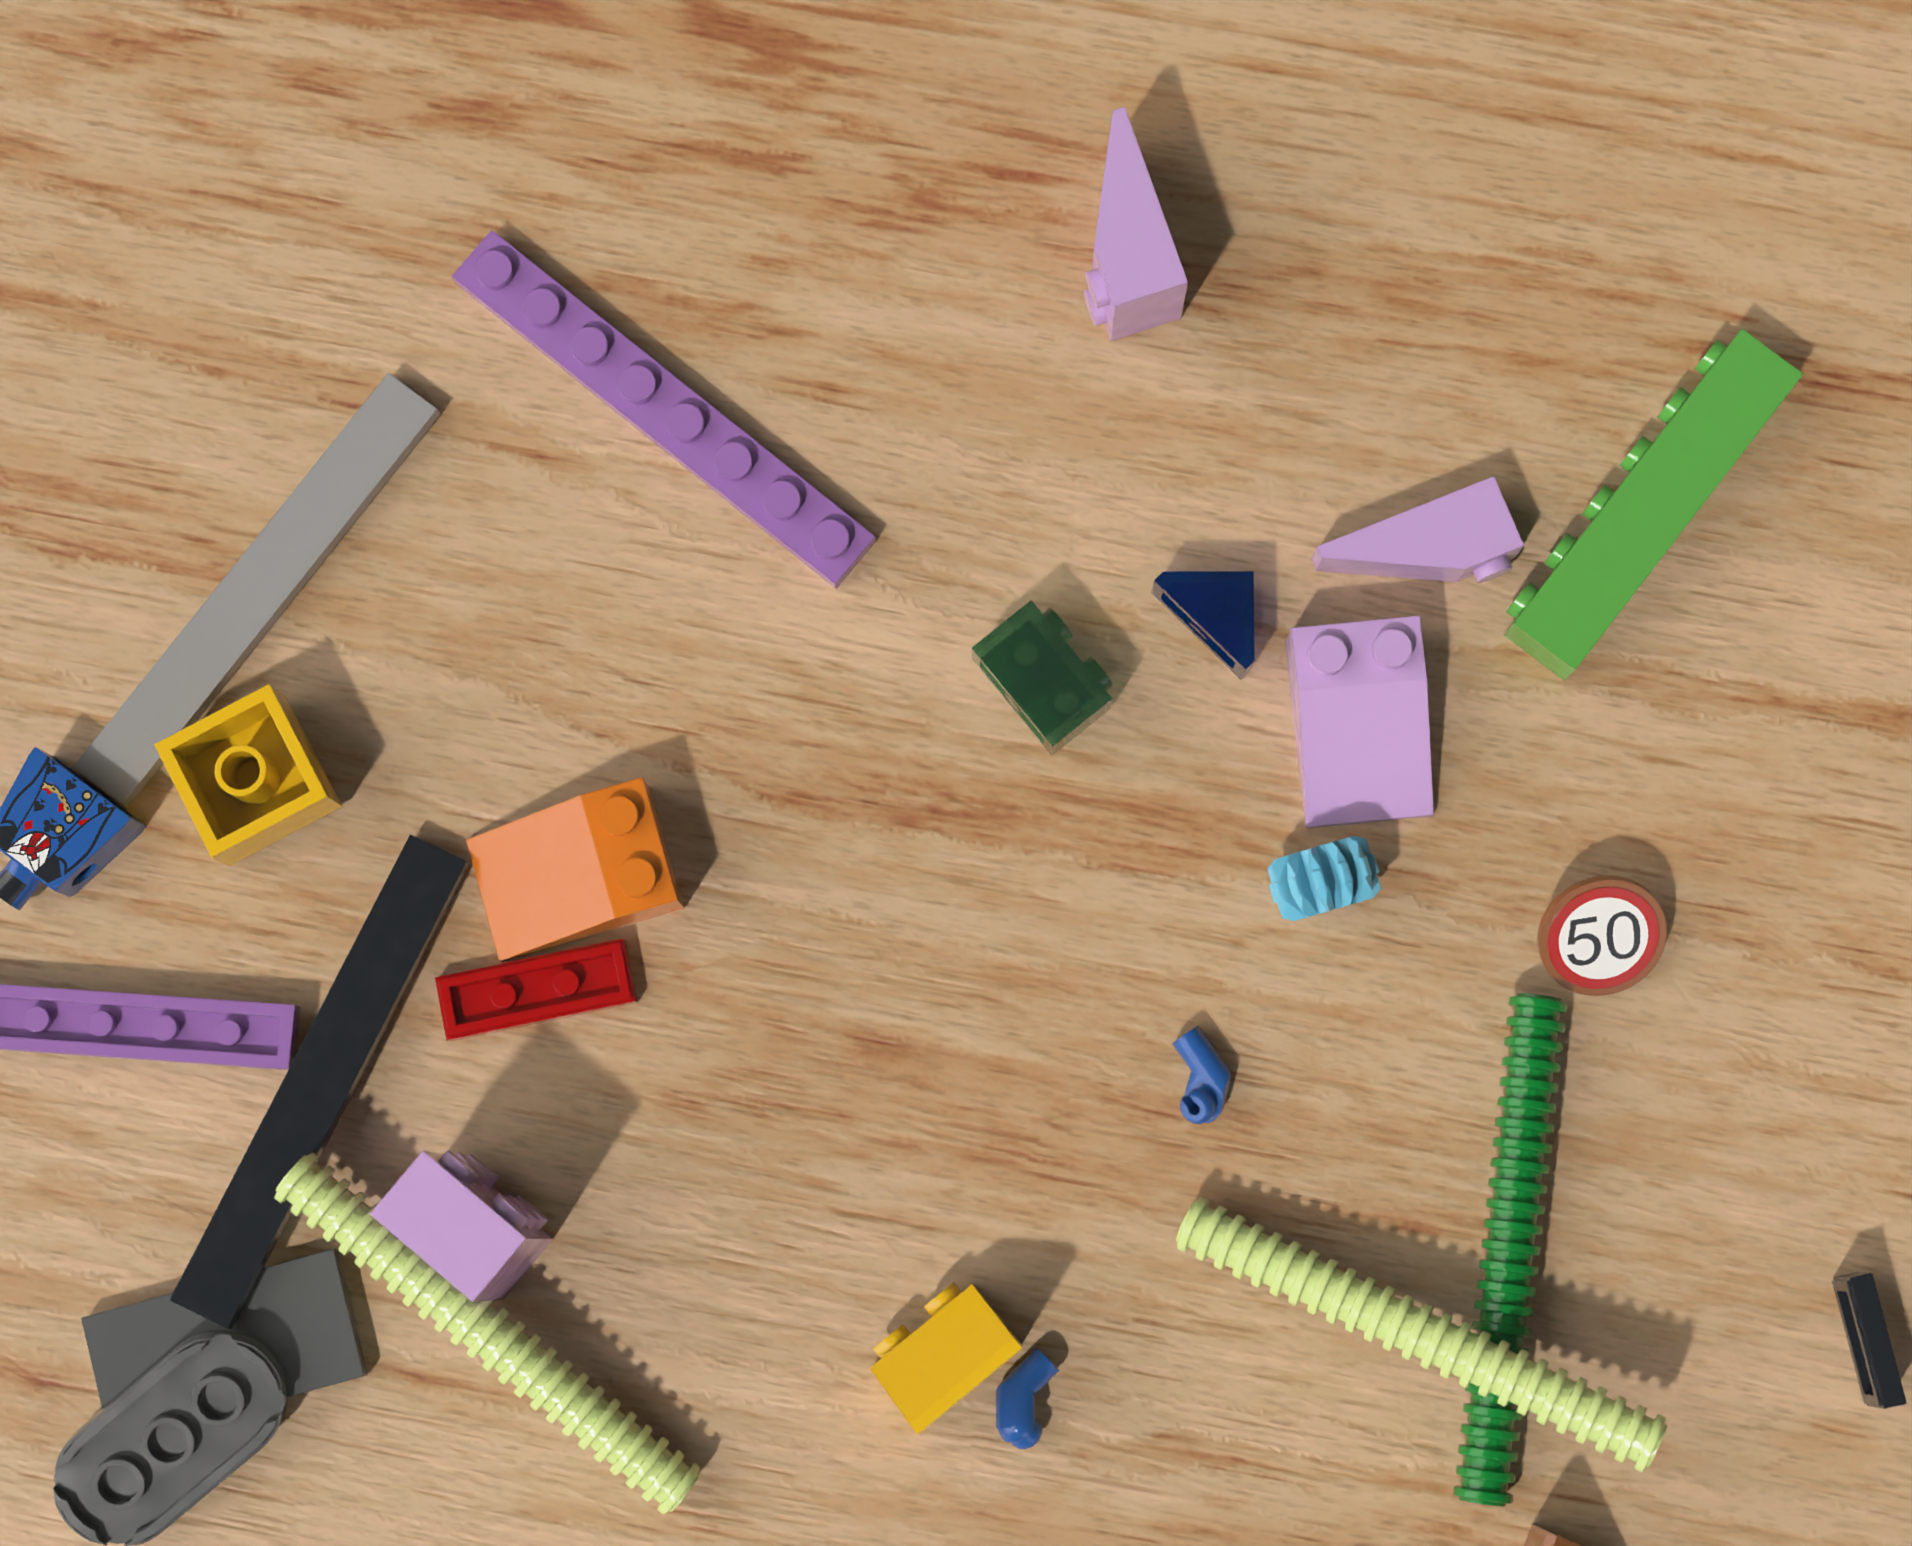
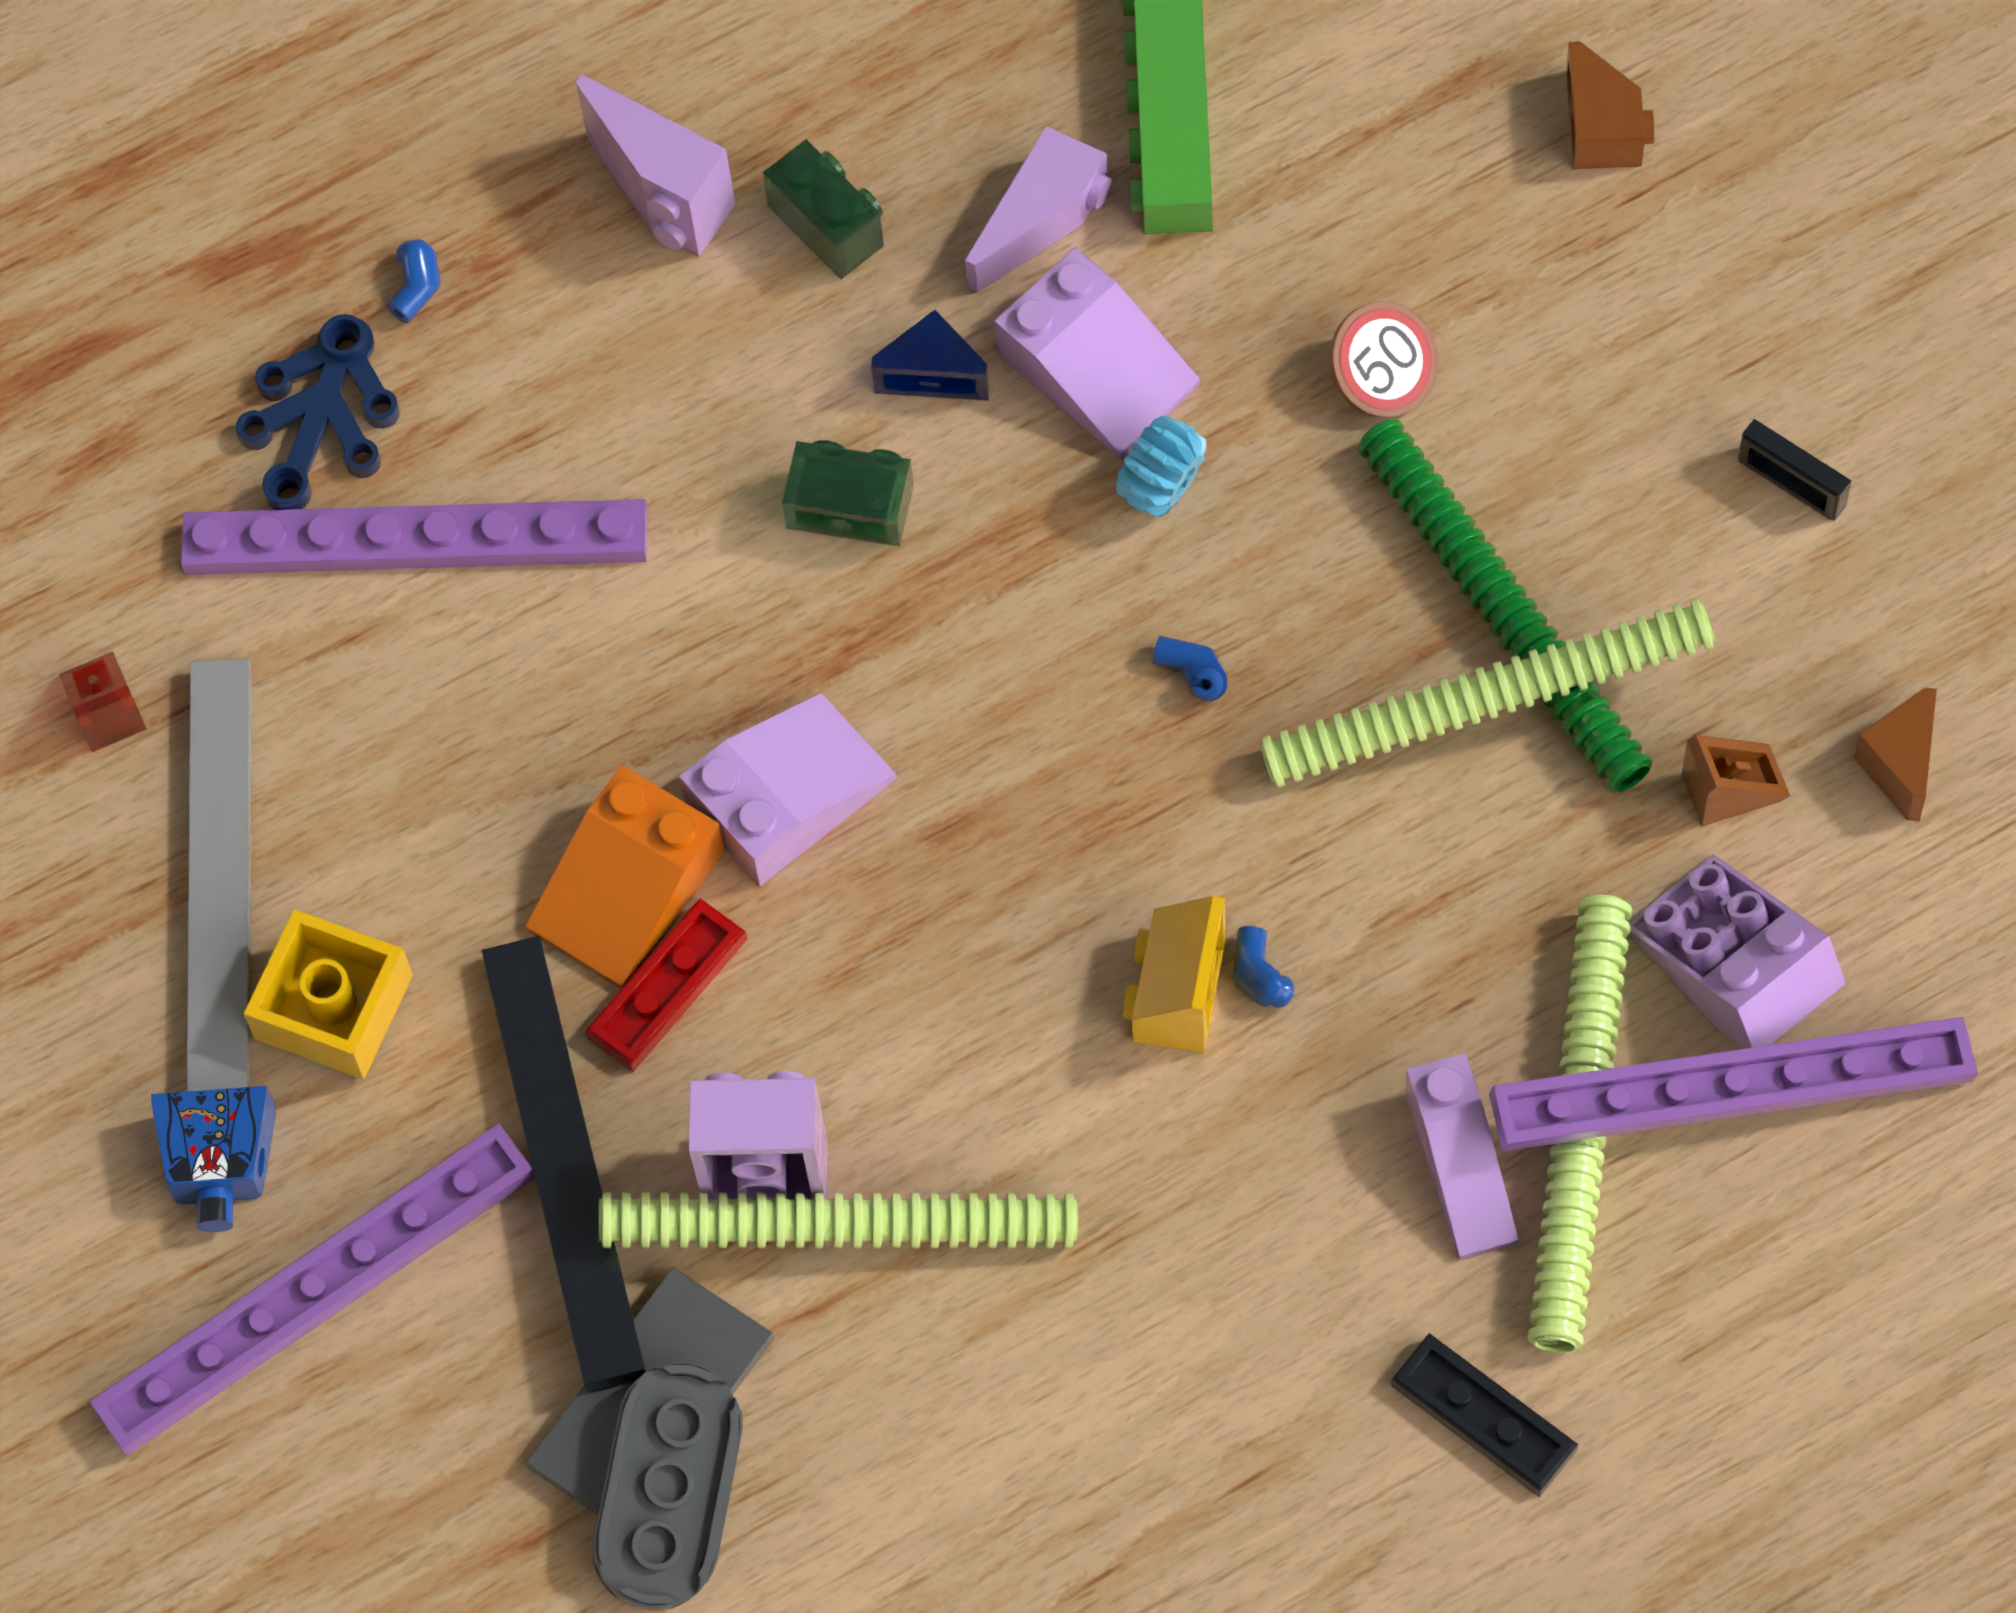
camera: 40 degrees left, 15 degrees down
(289, 344) = (102, 701): none -> clear red slope
(682, 222) = (319, 406): none -> dark blue plant
(776, 896) = (785, 784): none -> lavender slope
(860, 171) = (421, 279): none -> blue arm
(1244, 390) = (824, 208): none -> clear green brick

